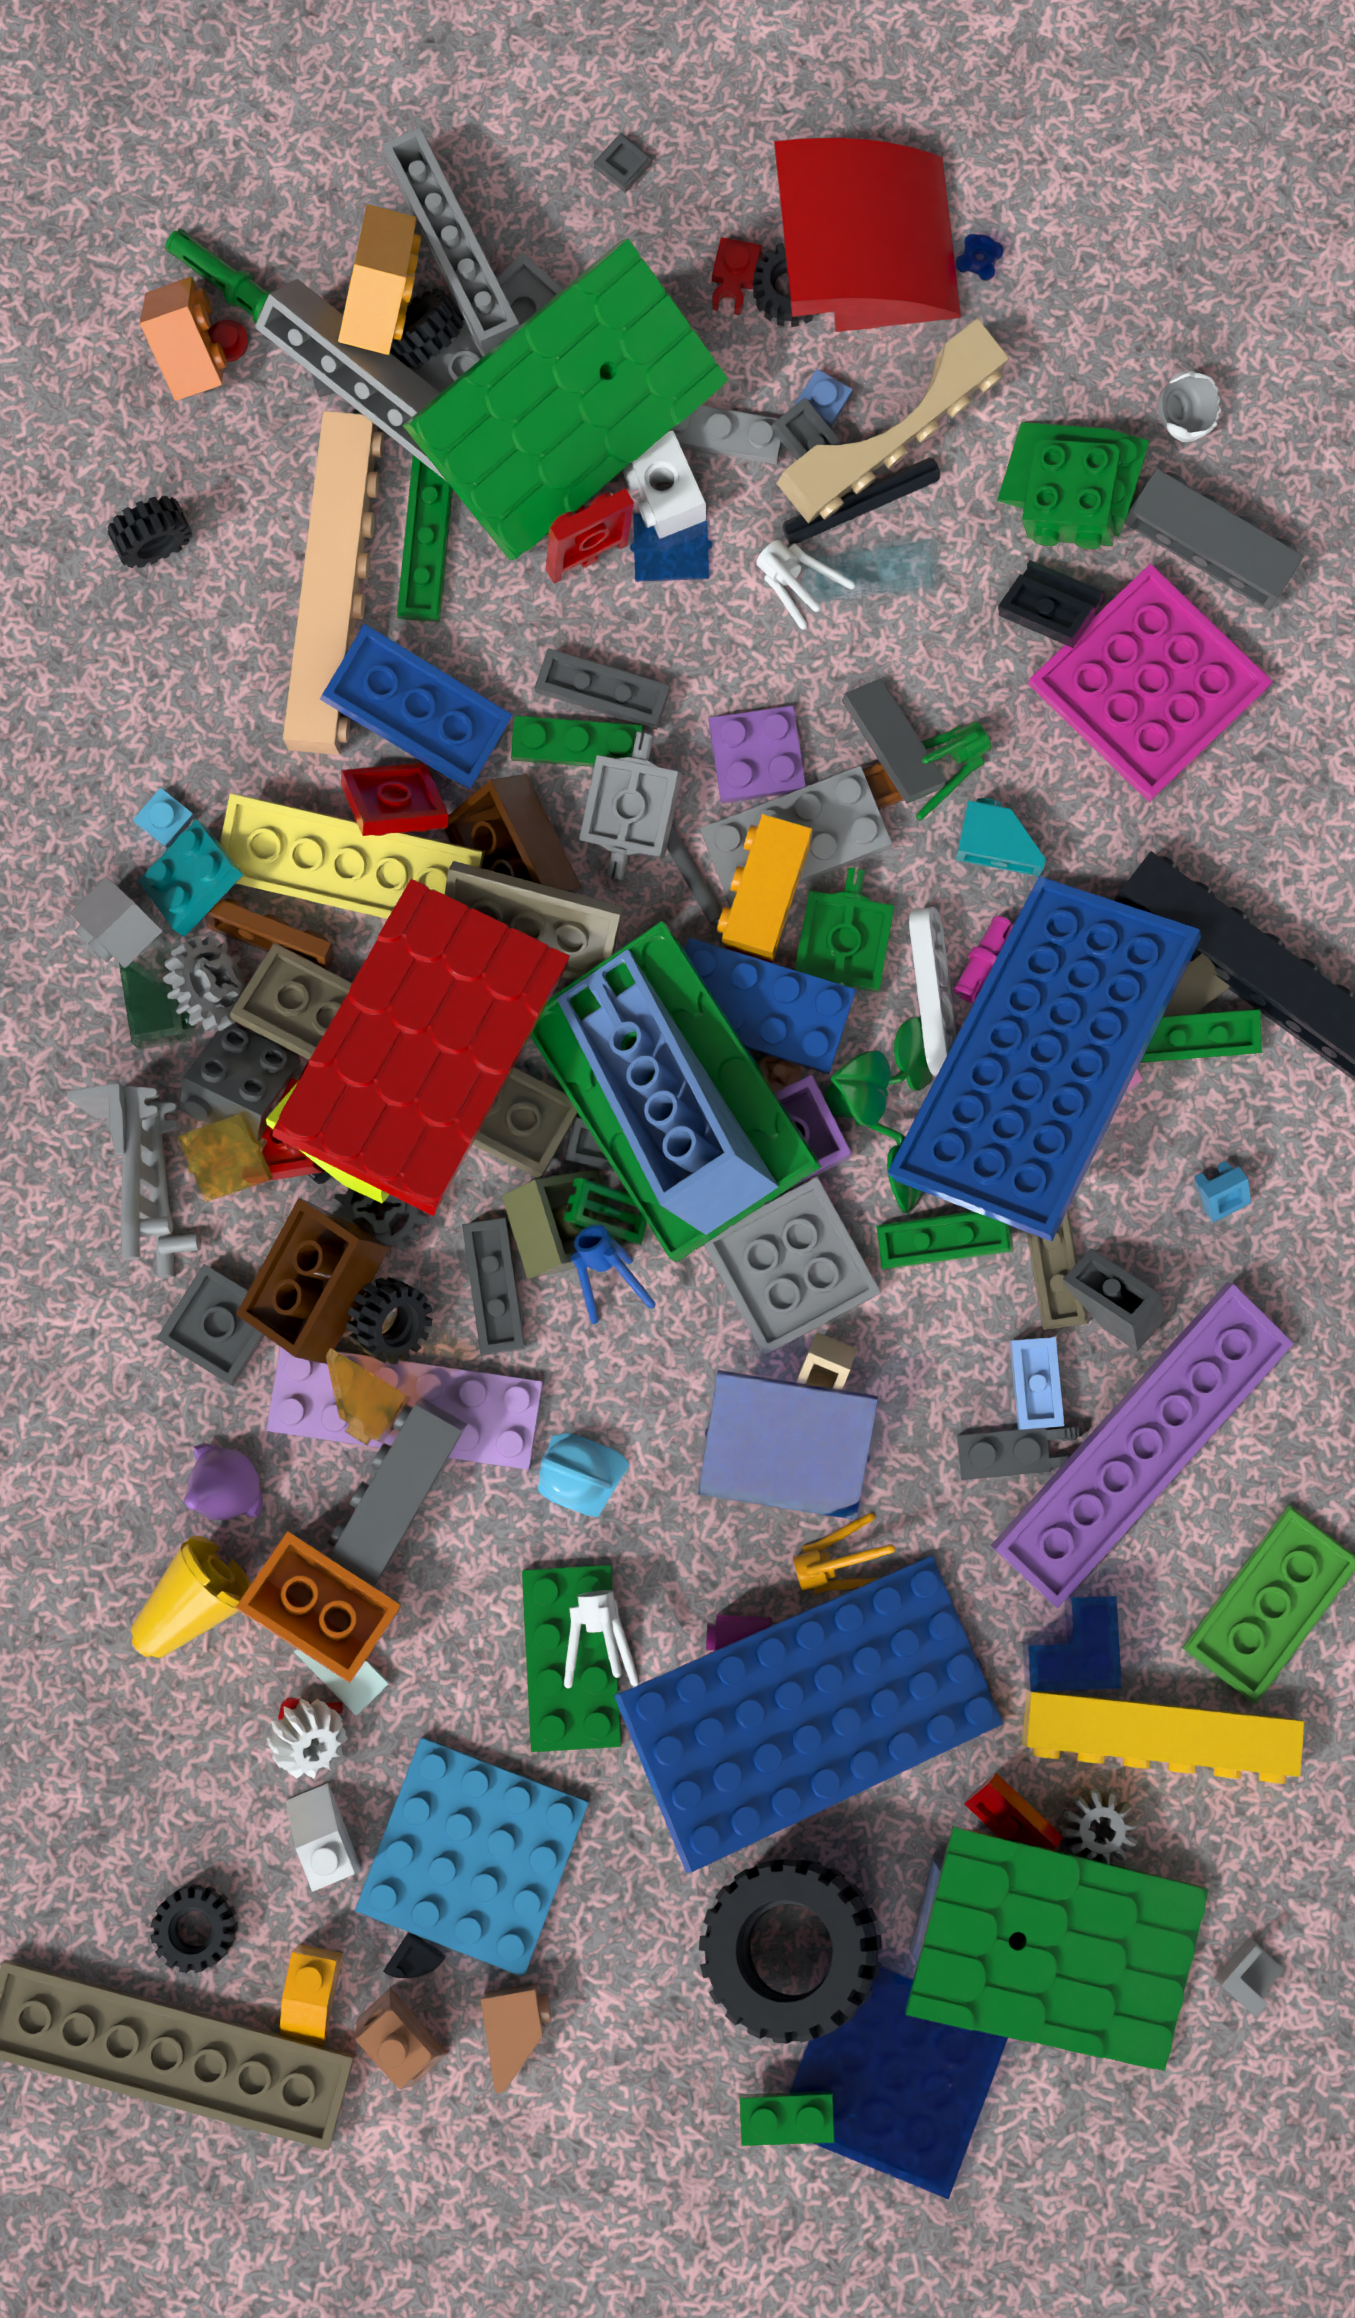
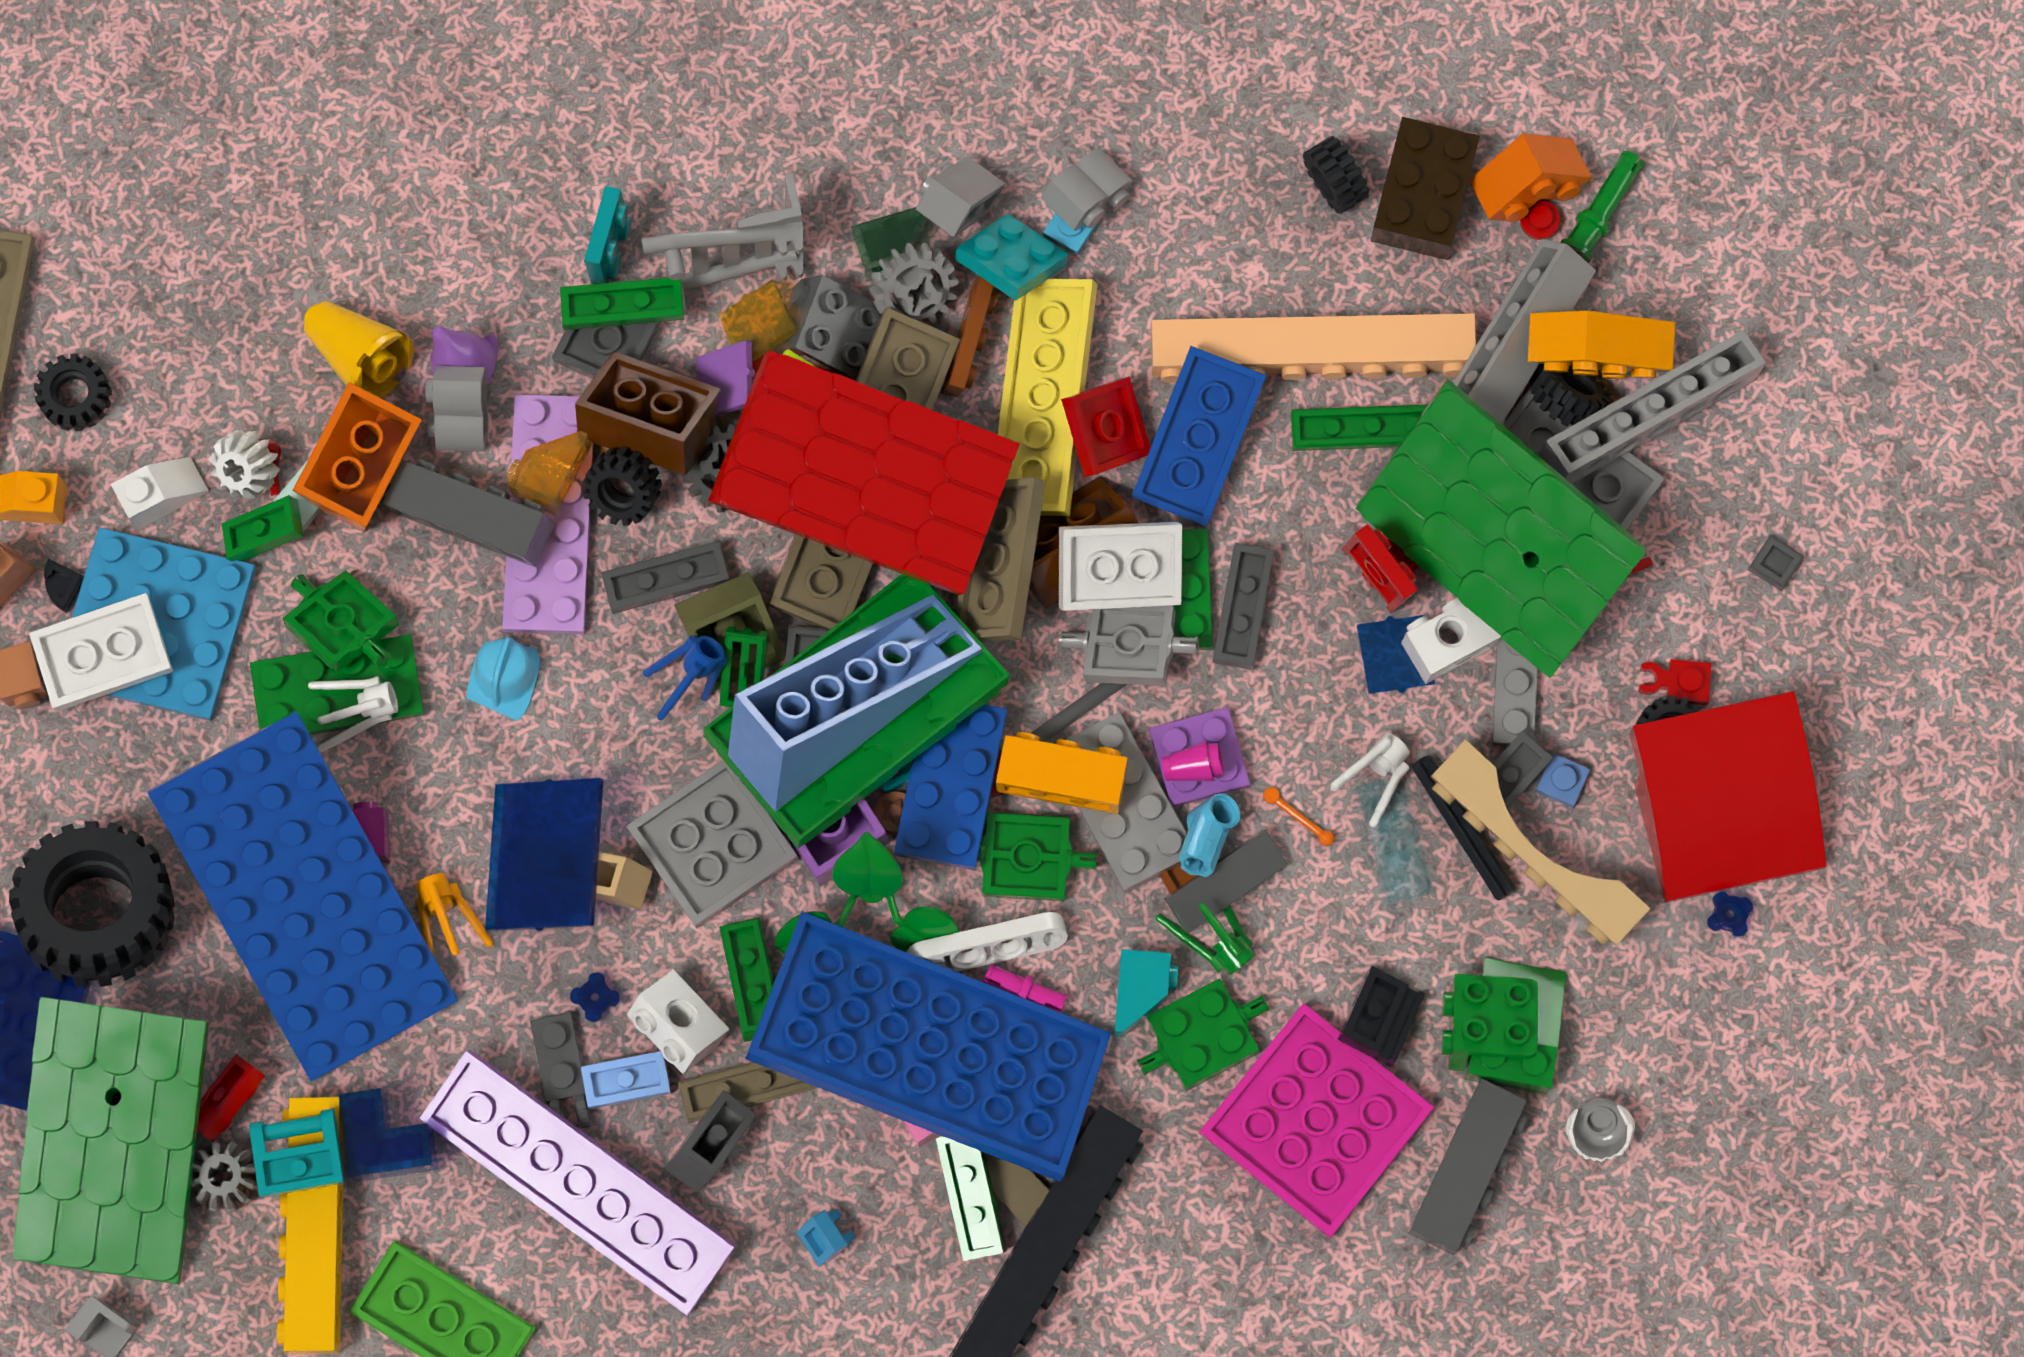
camera: 80 degrees right, 5 degrees down
(93, 1301) = (608, 230): none -> teal plate
(127, 790) = (1087, 190): none -> light grey brick
(177, 446) = (1424, 188): none -> dark brown brick
(182, 1299) = (621, 303): none -> green plate
(275, 1190) = (729, 370): none -> medium lavender piece
(276, 1490) = (458, 408): none -> light grey brick
(383, 1724) = (262, 529): none -> green plate
(500, 1645) = (340, 621): none -> green plate
(503, 1918) = (101, 652): none -> white plate
(551, 799) = (1120, 566): none -> white plate
(770, 752) = (1194, 763): none -> dark pink cone
(805, 687) = (1272, 796): none -> orange hinge
(837, 749) = (1206, 834): none -> medium azure piece
(931, 1407) = (595, 1009): none -> clear blue plate
(990, 1298) = (675, 1001): none -> white brick
(1049, 784) = (1202, 1034): none -> green plate
(1108, 1742) = (299, 1166): none -> teal plate

